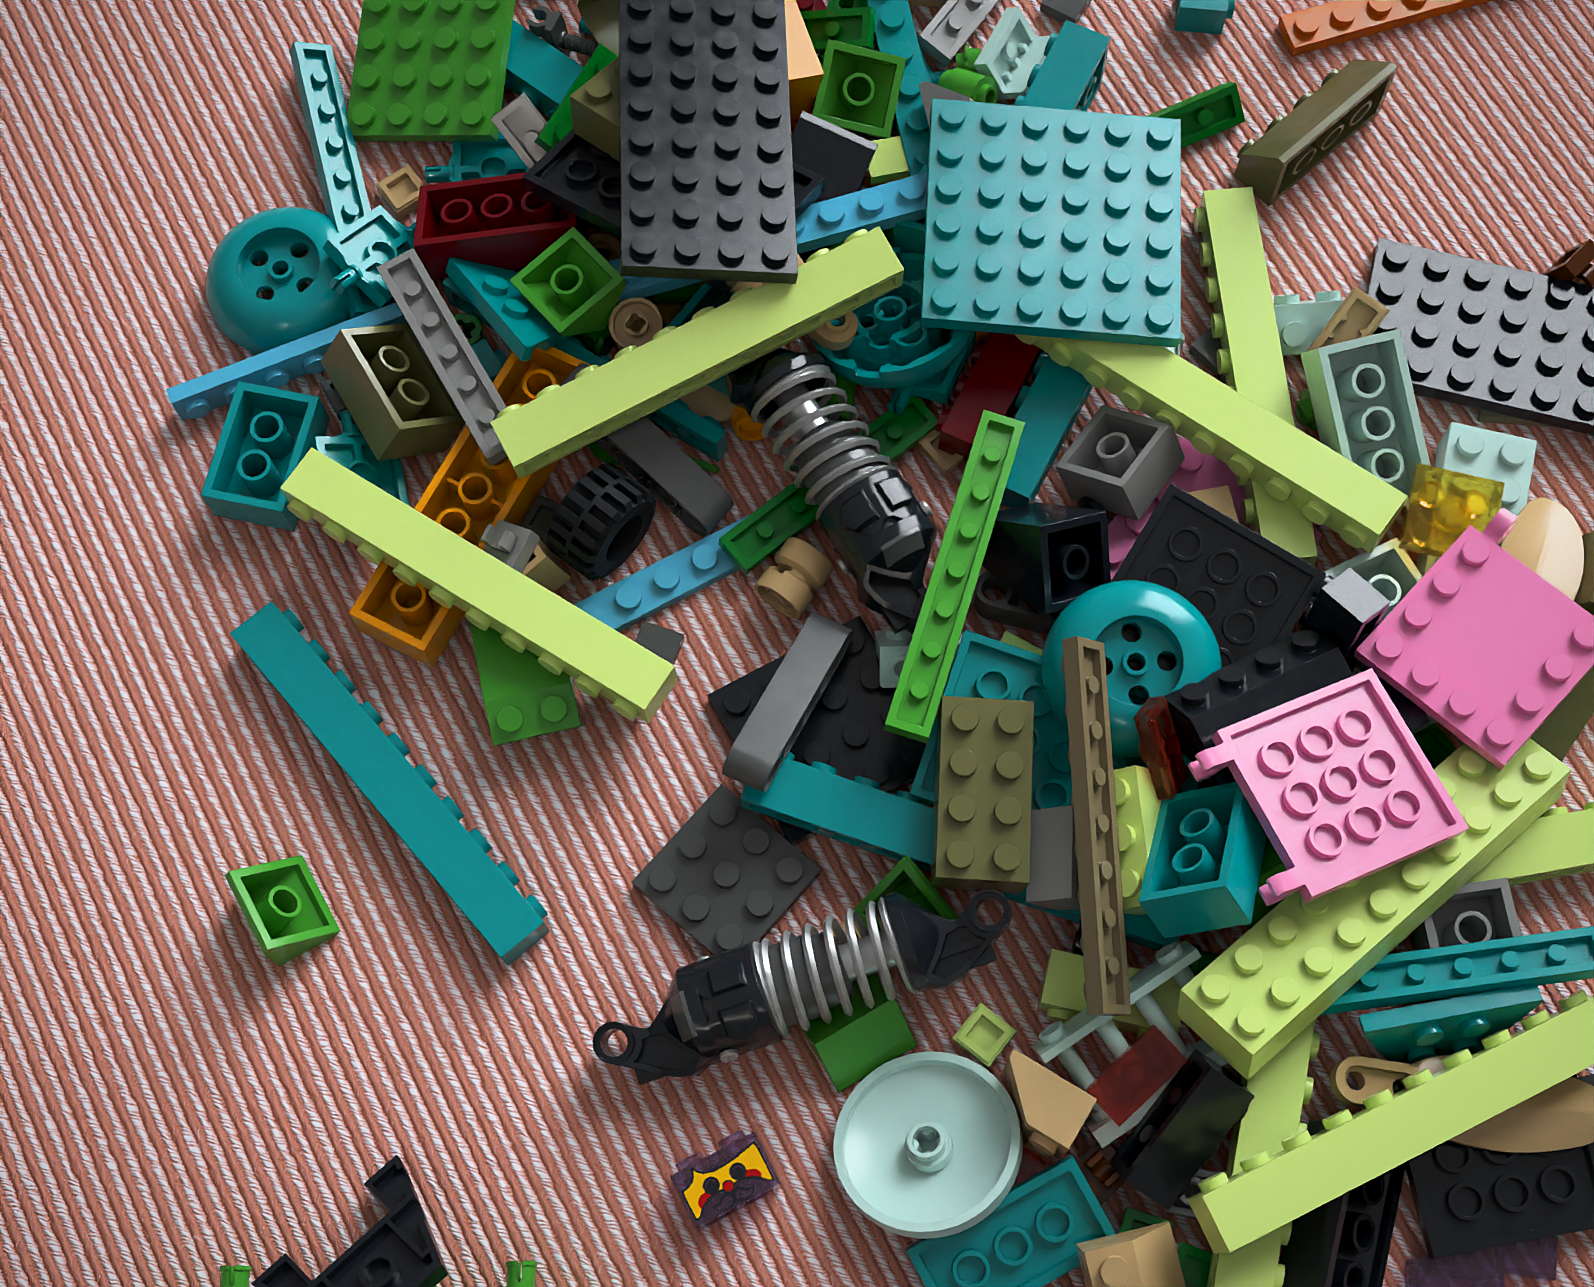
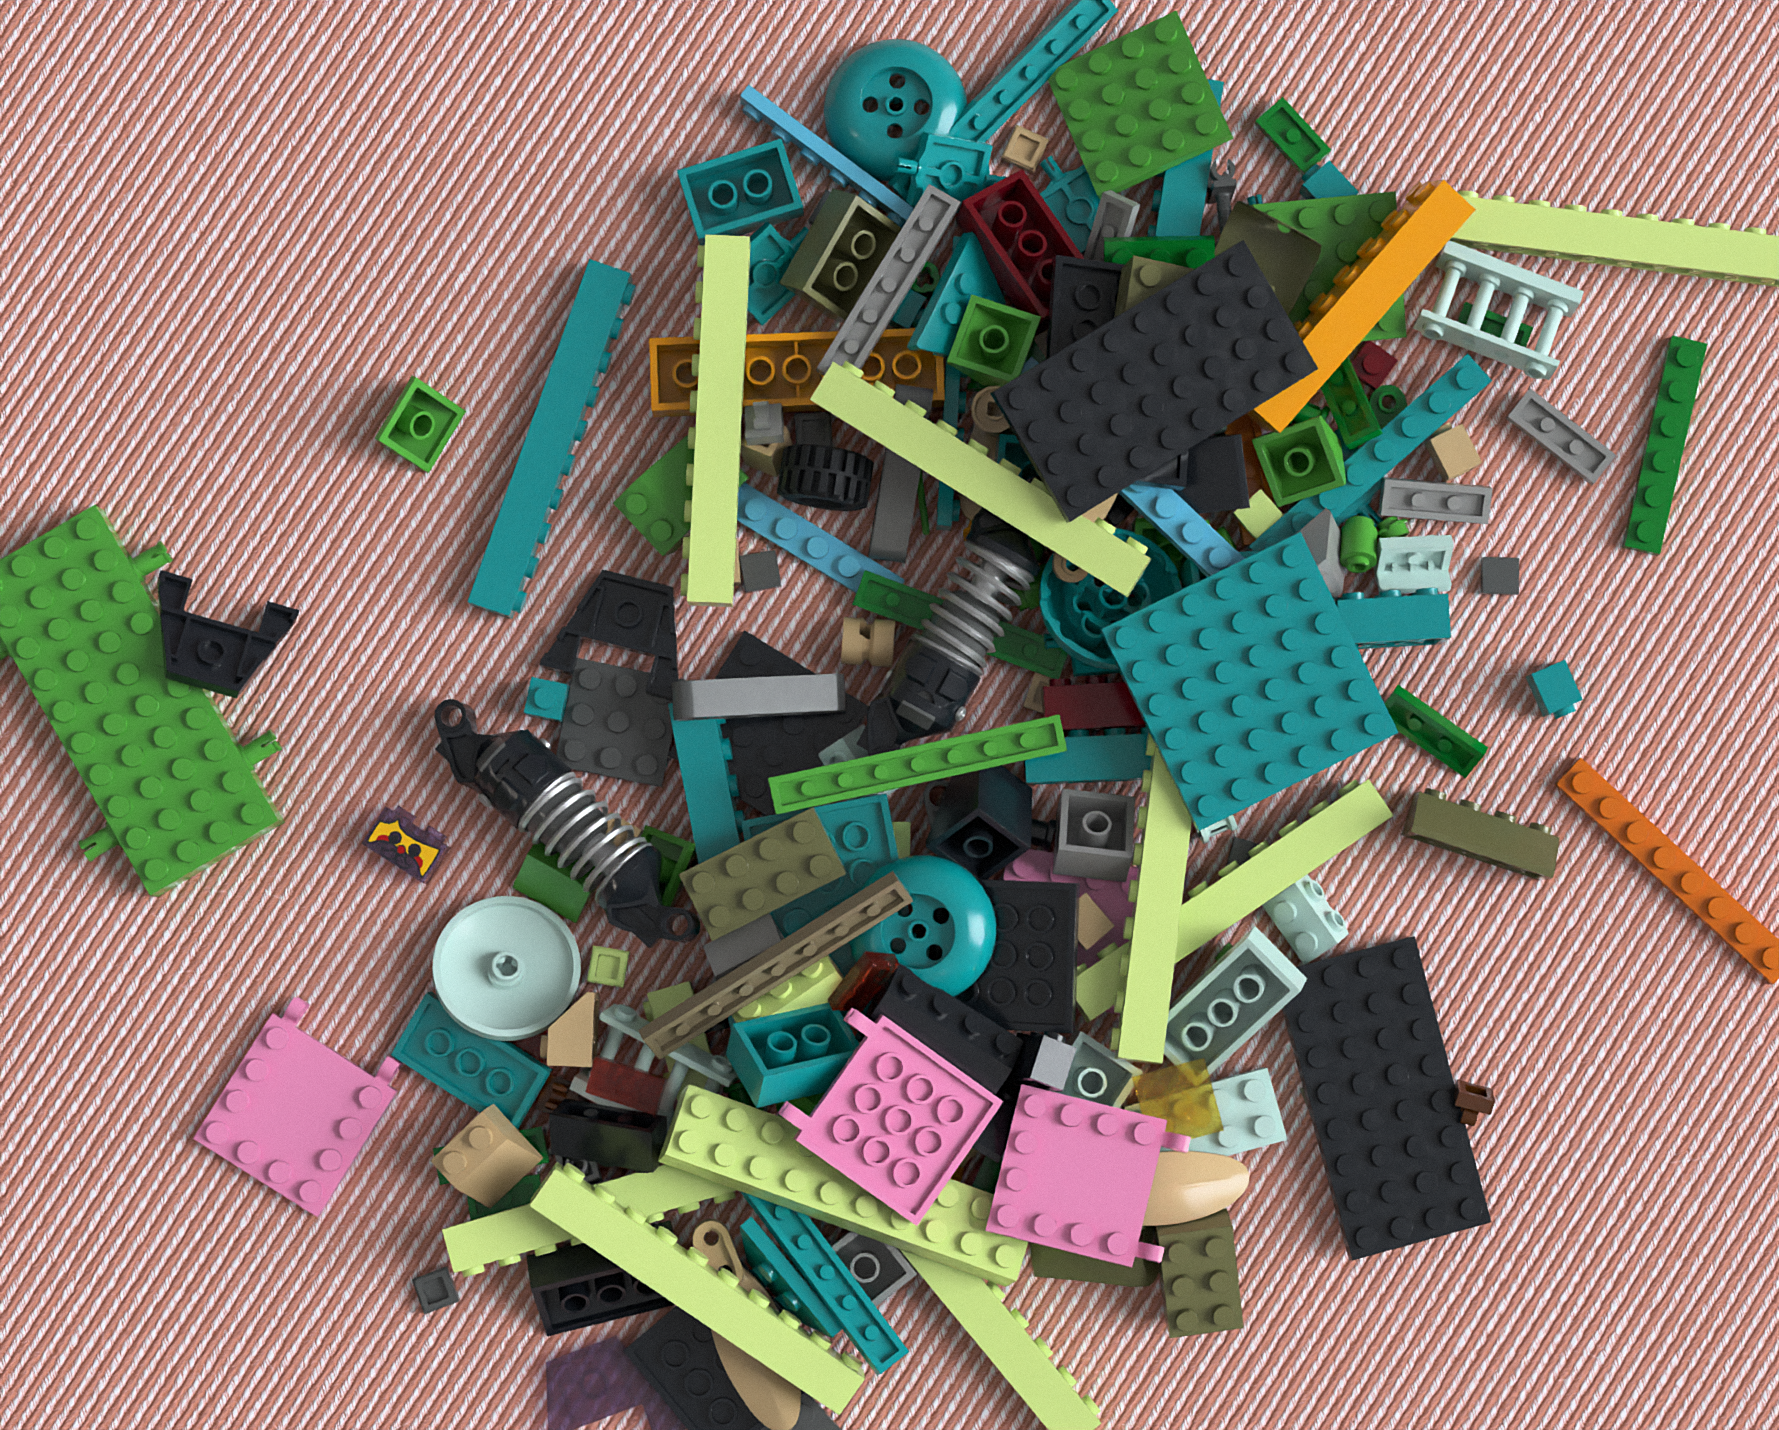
camera: 55 degrees right, 15 degrees up
(621, 803) = (626, 616): none -> black wing
(658, 935) = (546, 700): none -> teal brick
(1354, 319) = (1307, 951): tan plate -> none

